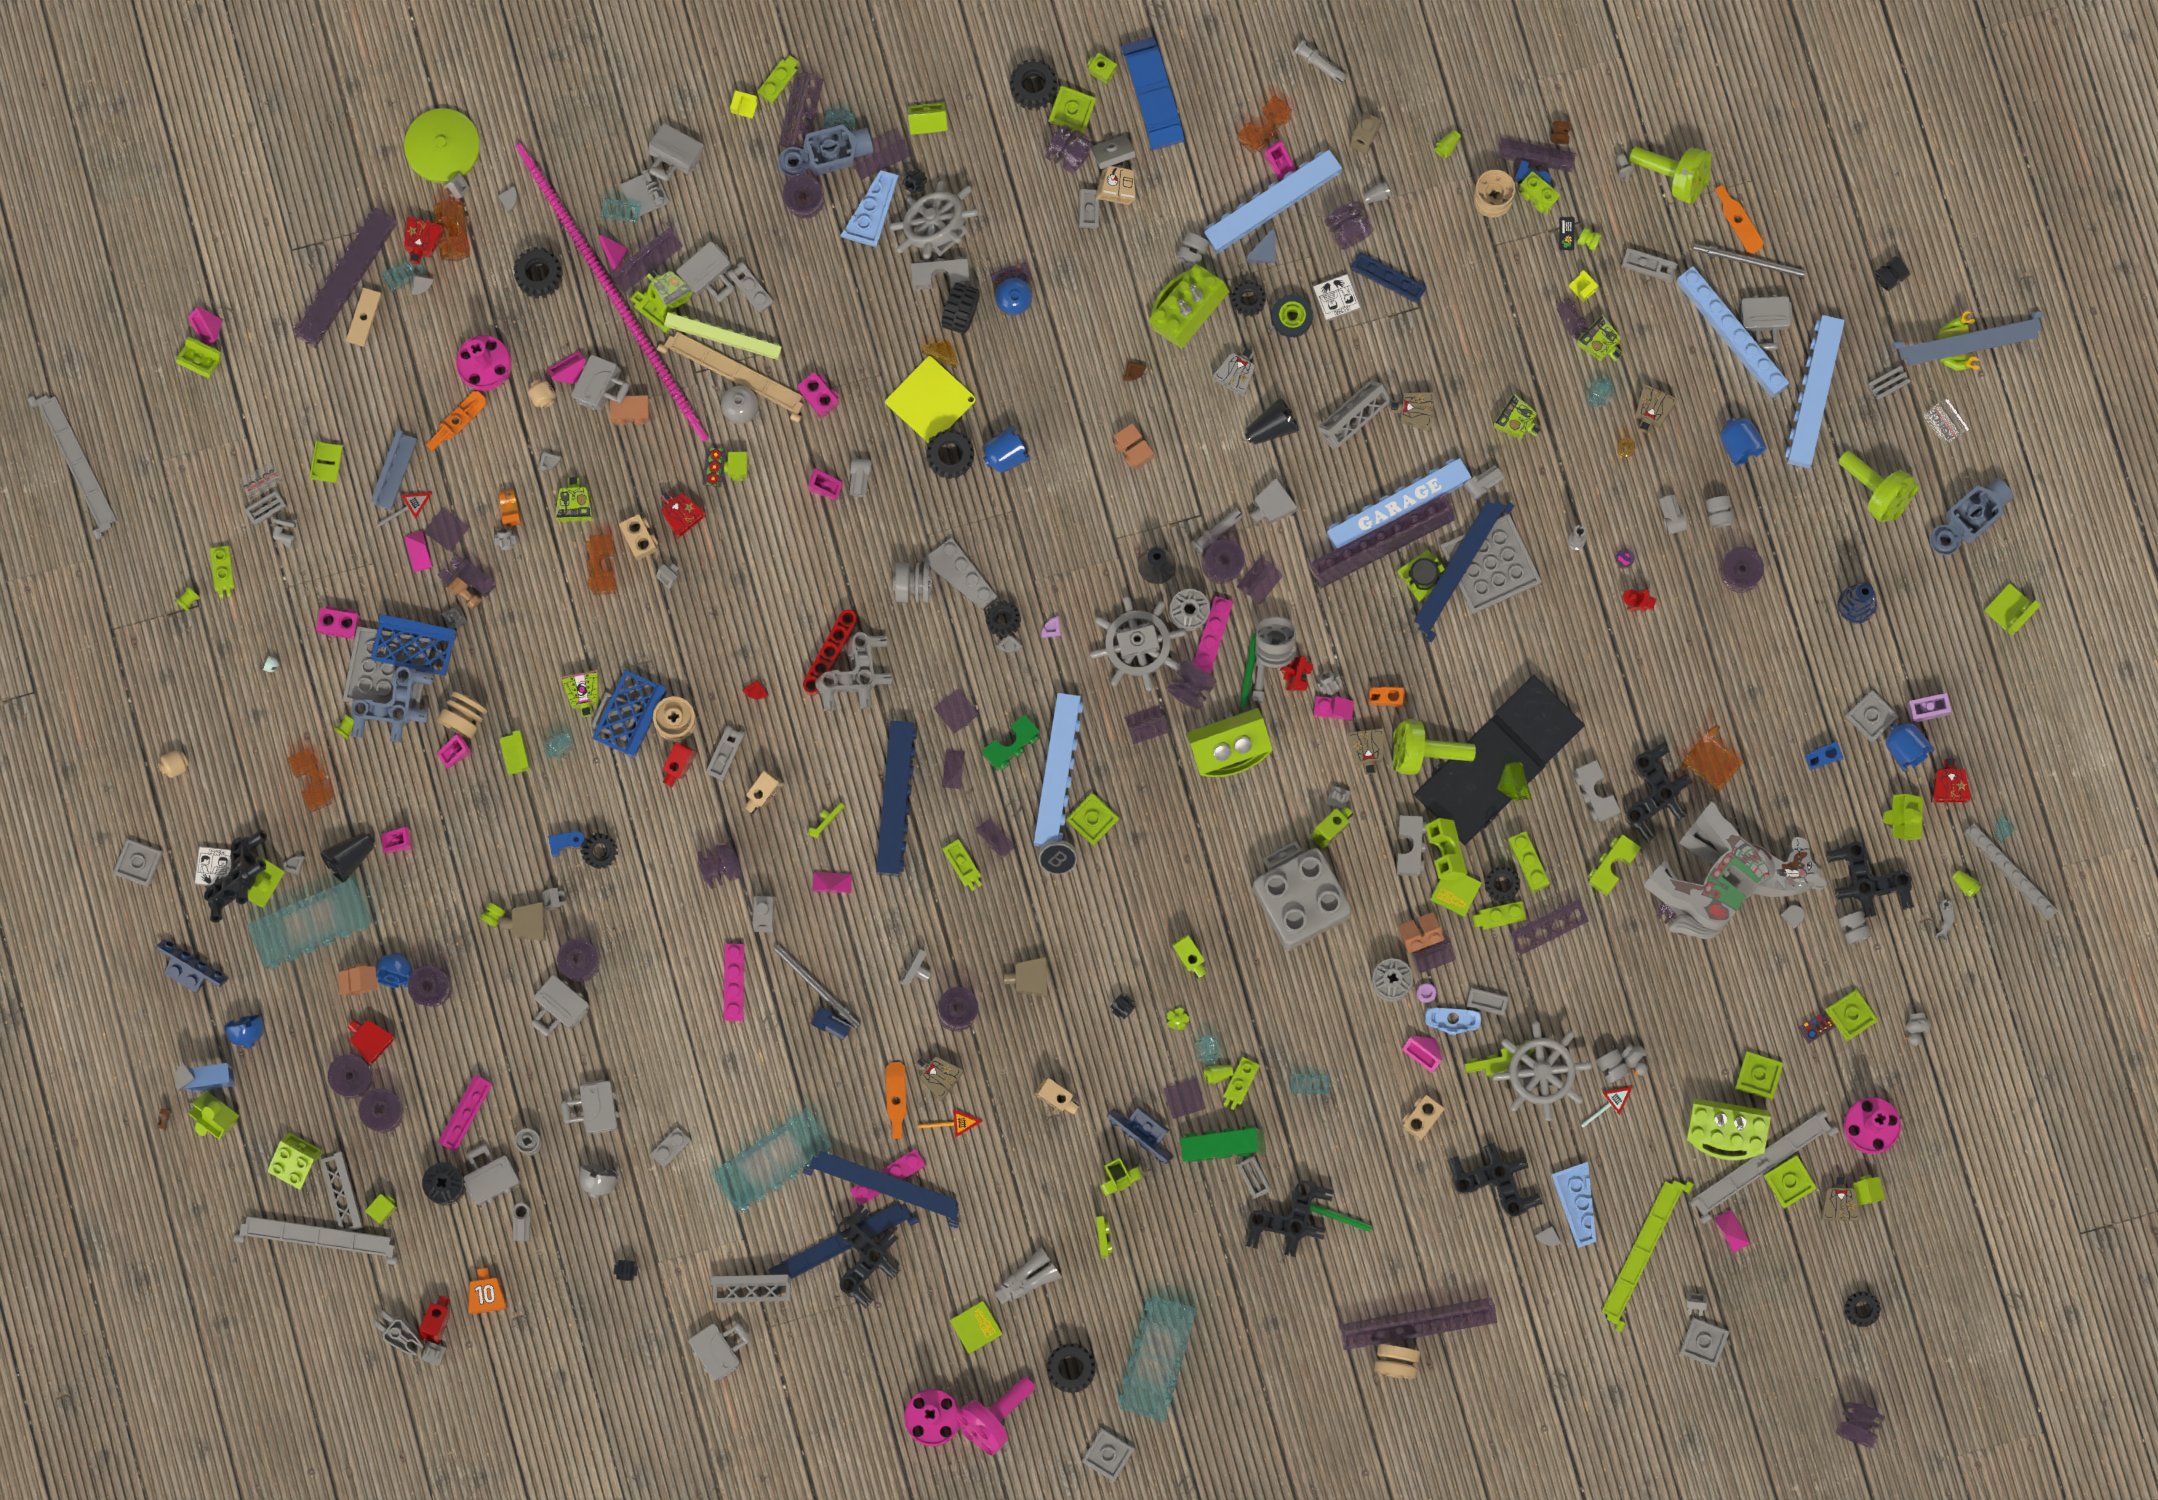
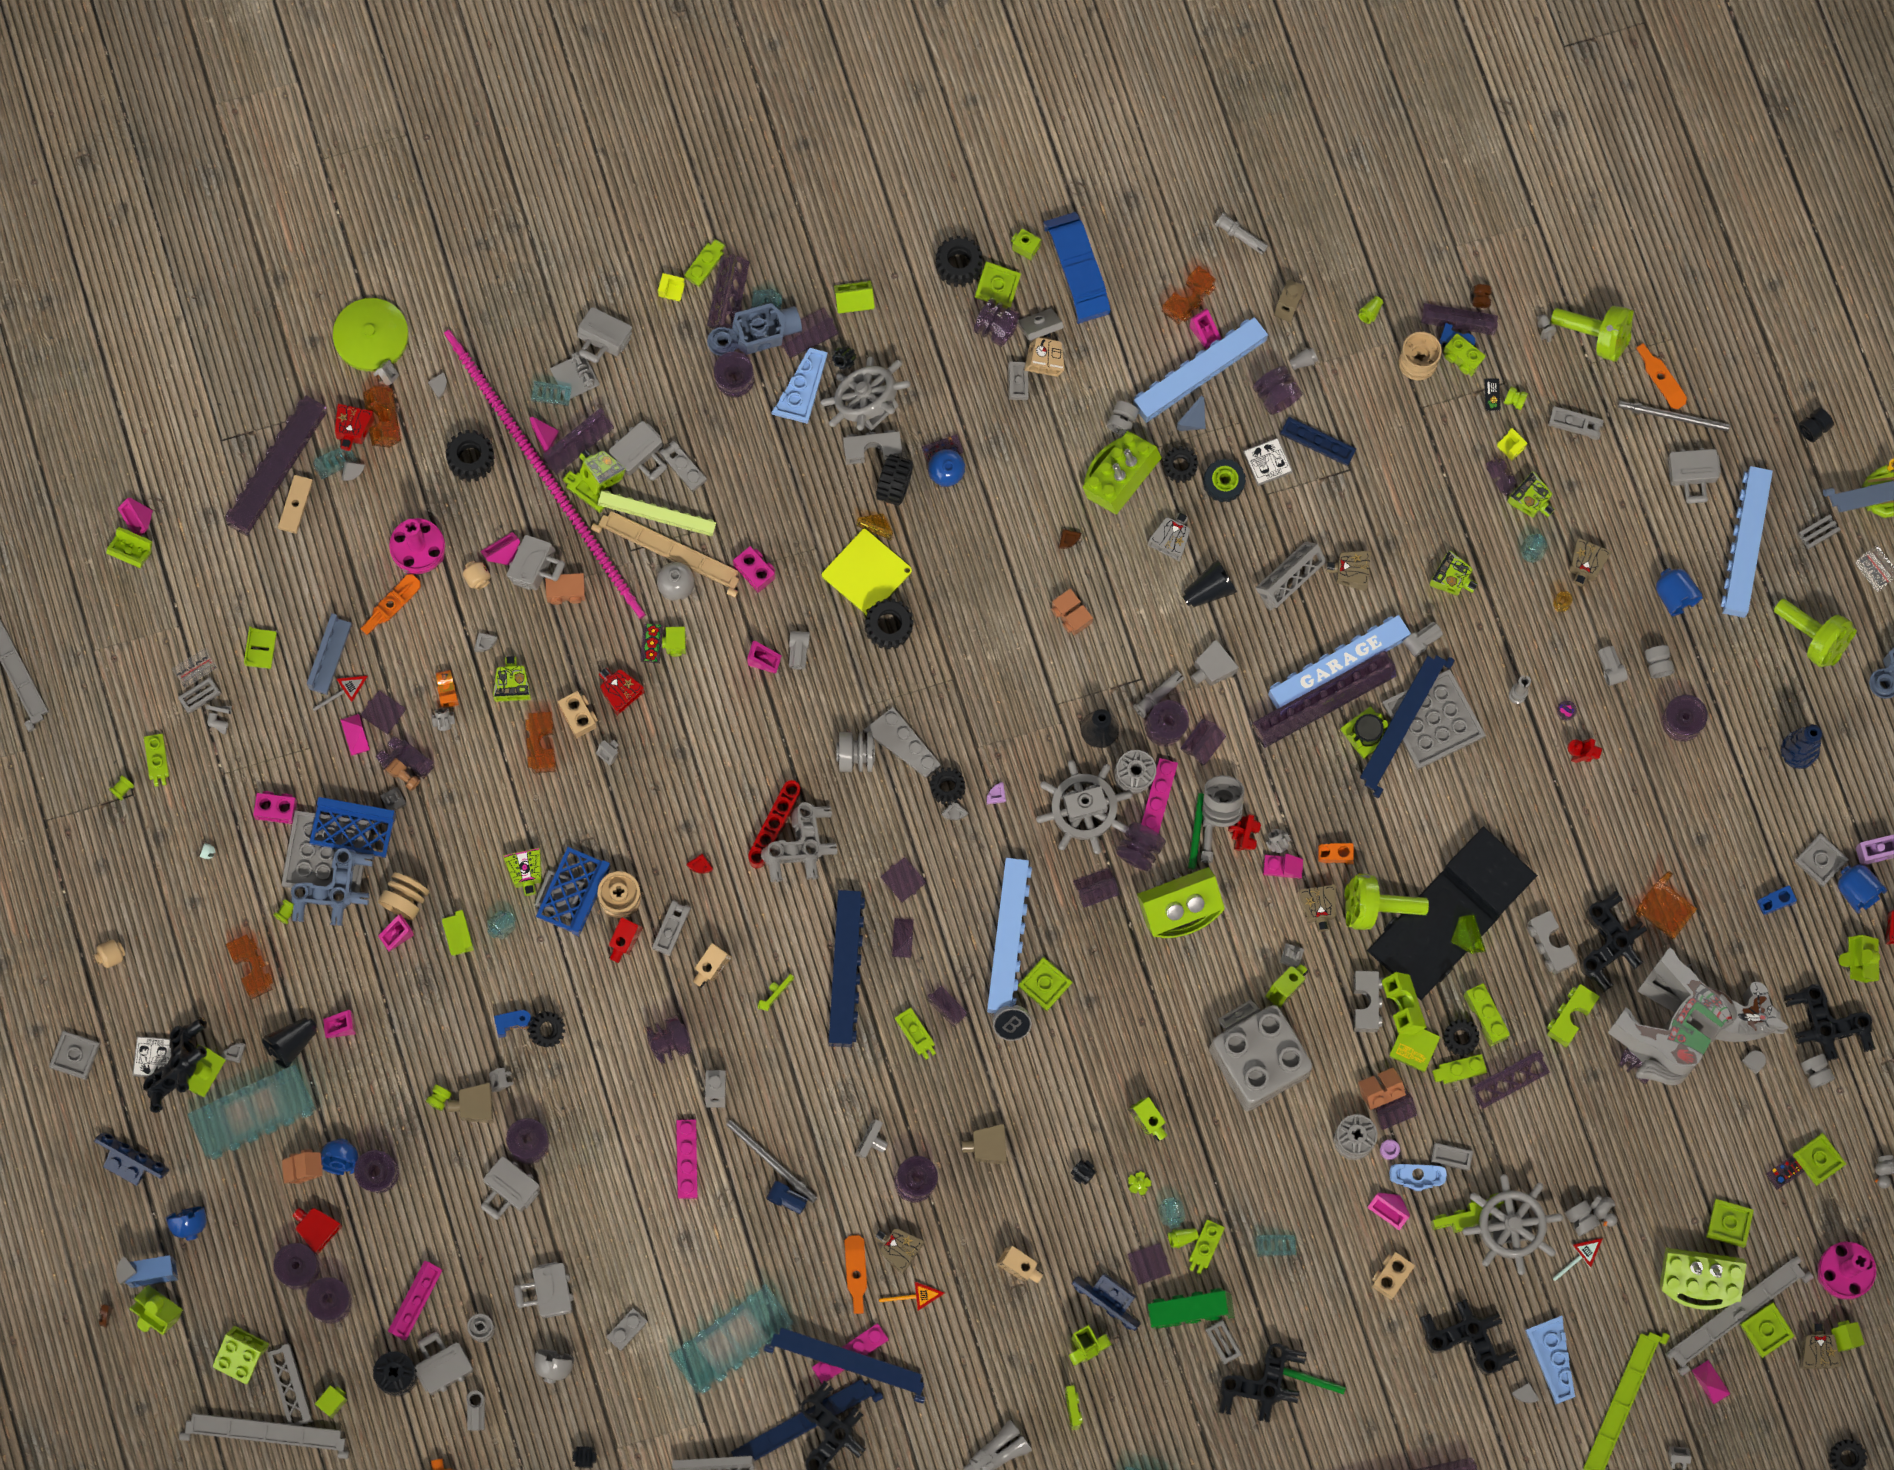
camera: 10 degrees left, 5 degrees down
(832, 882) = (783, 1055): dark pink slope -> none
(1000, 755) = (949, 922): green arch -> none
(1005, 451) = (944, 619): blue cylinder -> none
(1732, 332) = (1662, 486): light blue brick -> none

